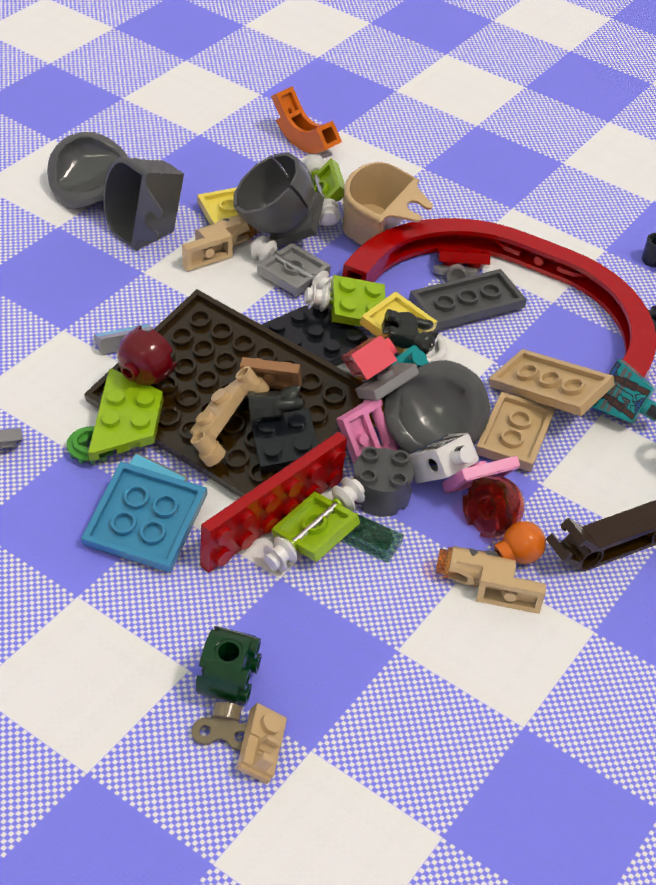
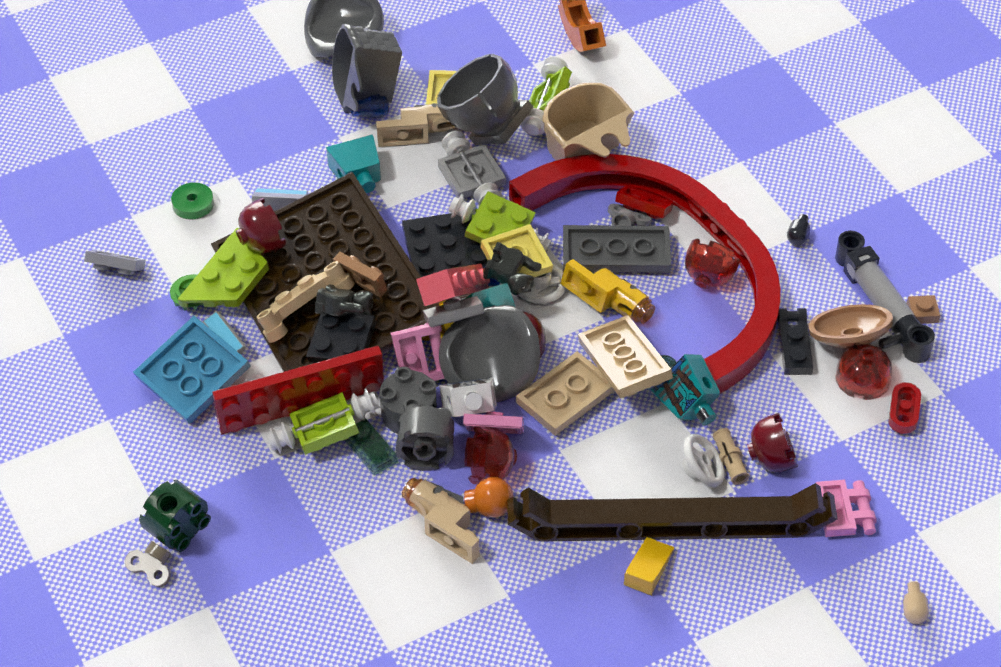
camera: 30 degrees right, 5 degrees up
(34, 362) = (192, 200): none -> green piece
(169, 237) = (372, 107): none -> clear blue cone
(177, 283) = (357, 157): none -> teal torso
(261, 743) = (169, 585): tan plate -> none
(426, 507) = (425, 437): none -> dark grey brick
(488, 334) = (606, 291): none -> yellow plate
(560, 288) = (710, 264): none -> clear red cylinder
(604, 247) = (798, 230): none -> black cylinder

